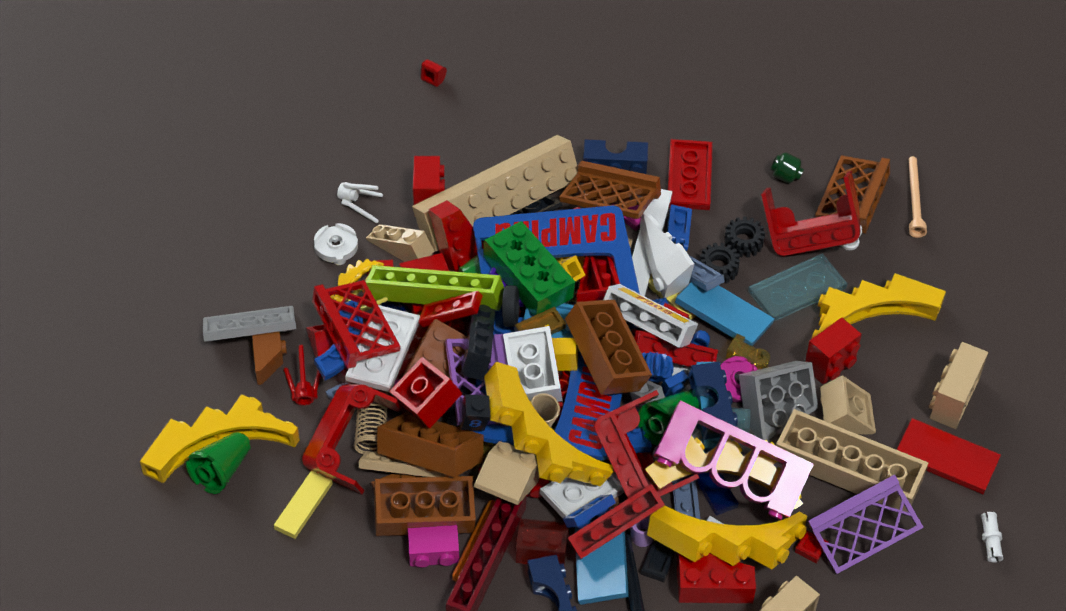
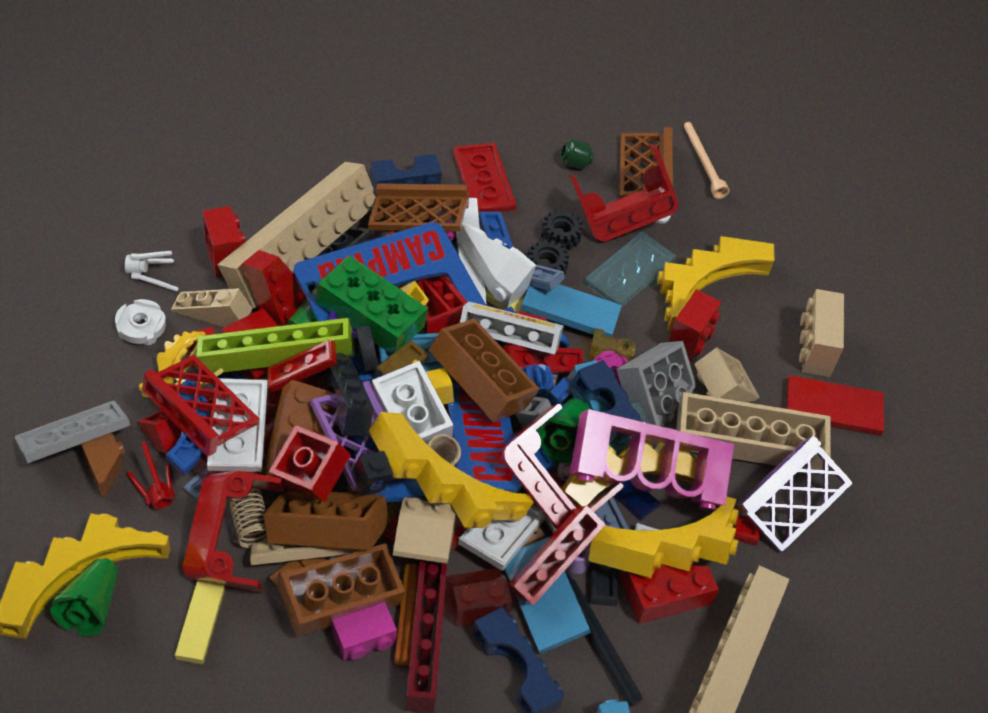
camera: 25 degrees left, 0 degrees up
(432, 72) = (185, 123): red brick -> none
(596, 507) = (525, 546): blue plate -> none
(992, 537) = (909, 476): white pin -> none

